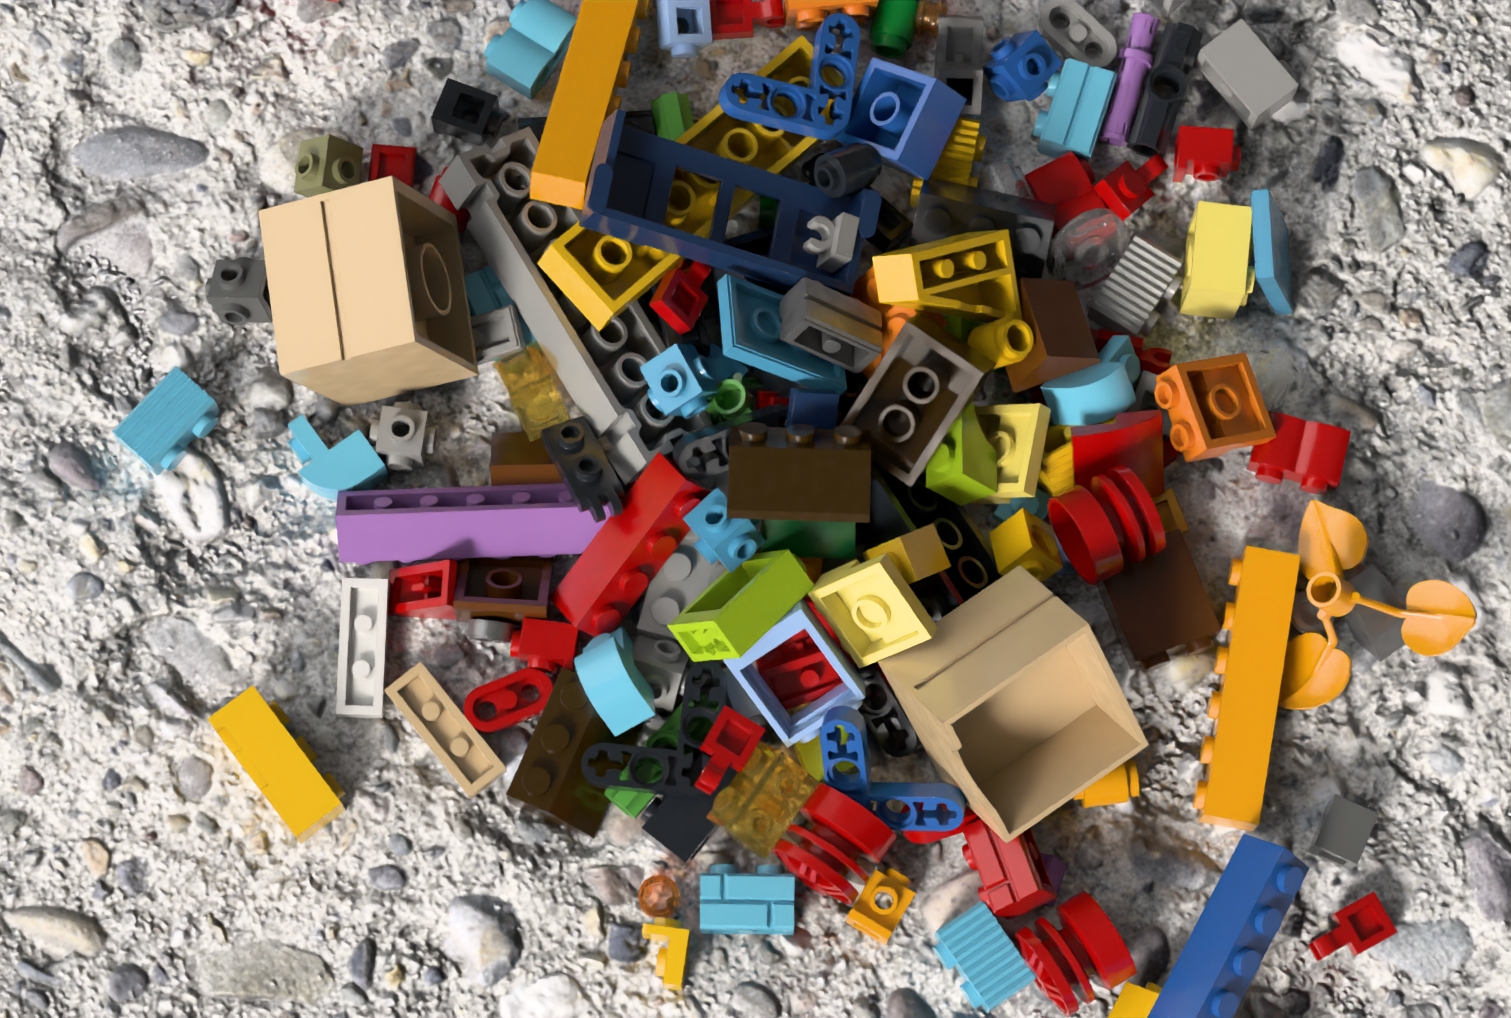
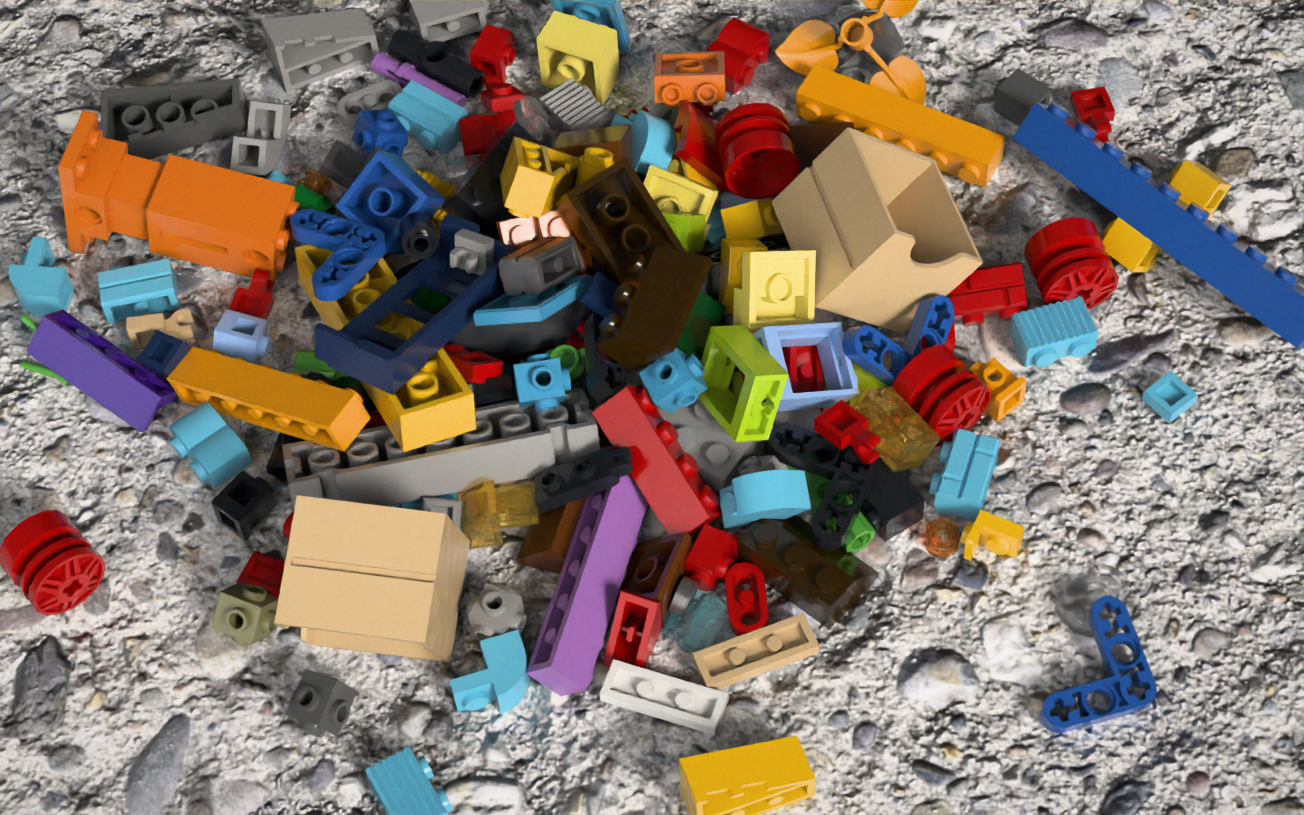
camera: 65 degrees left, 20 degrees down
(461, 659) = (700, 623): none -> clear light blue brick

